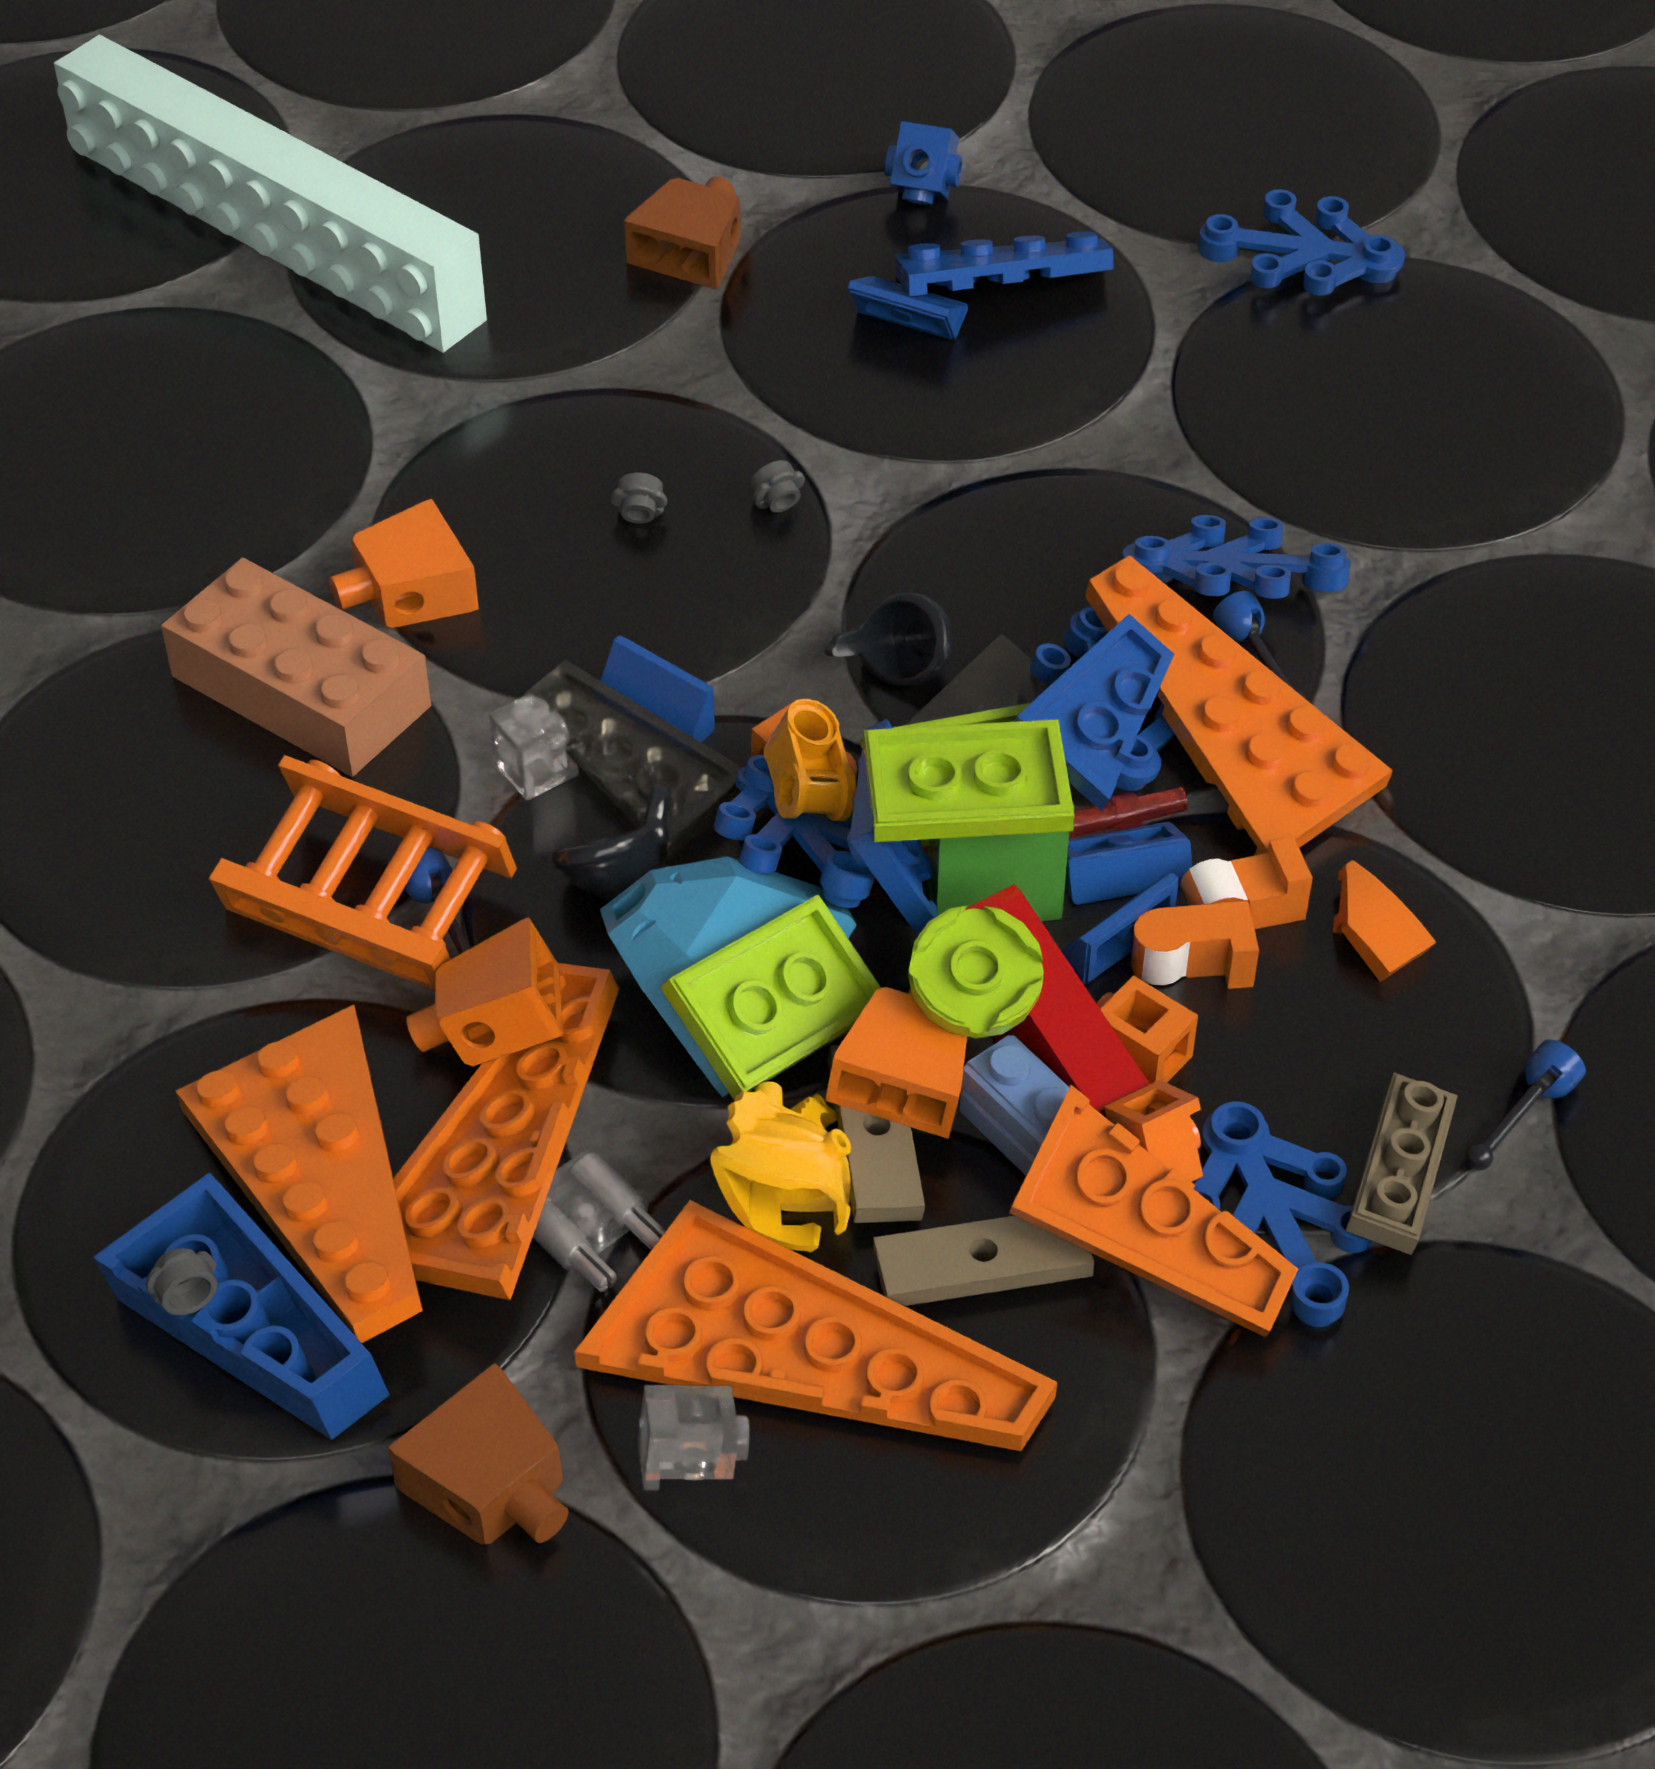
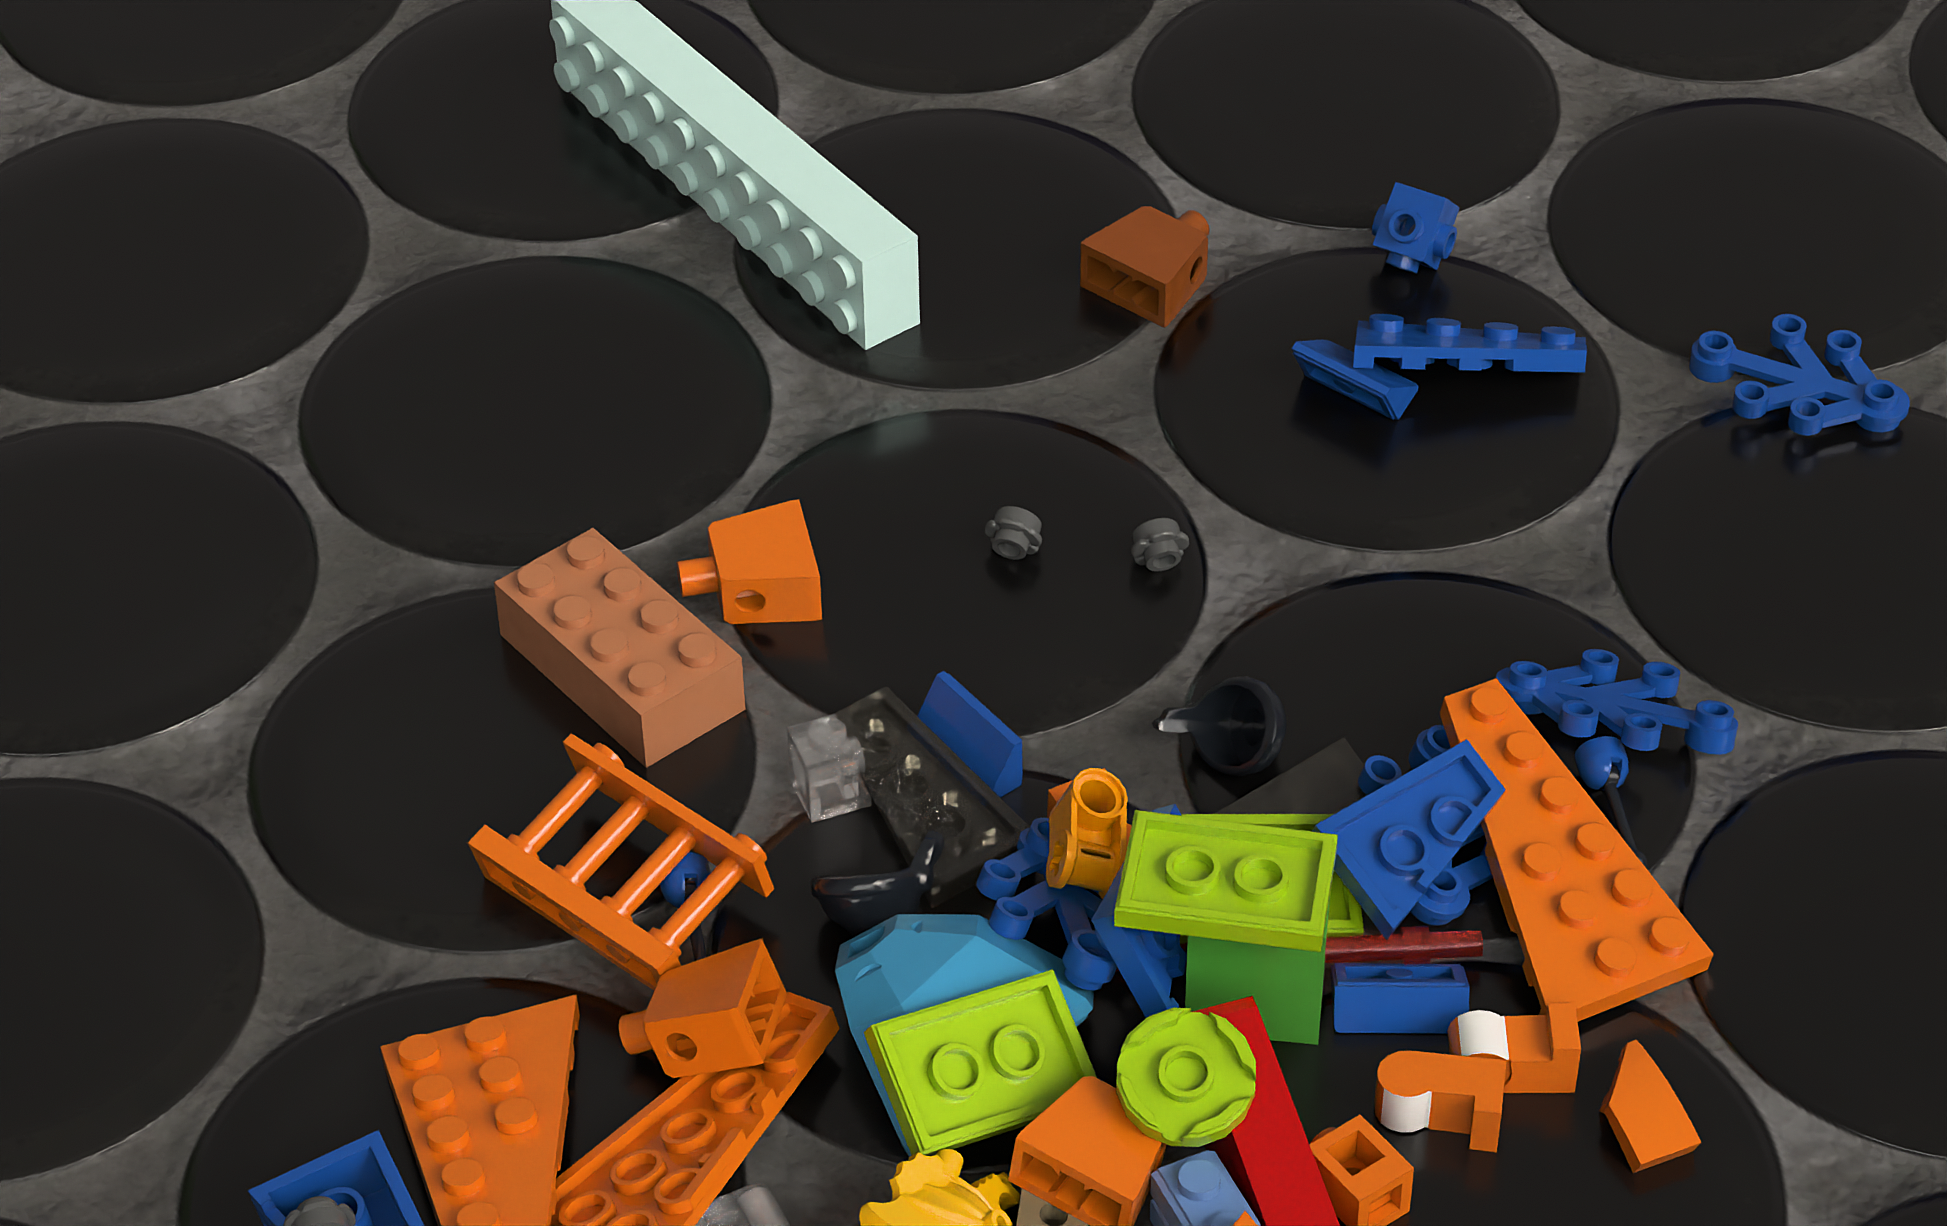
camera: 15 degrees right, 5 degrees down
(1113, 935) = (1355, 1072): blue slope -> none

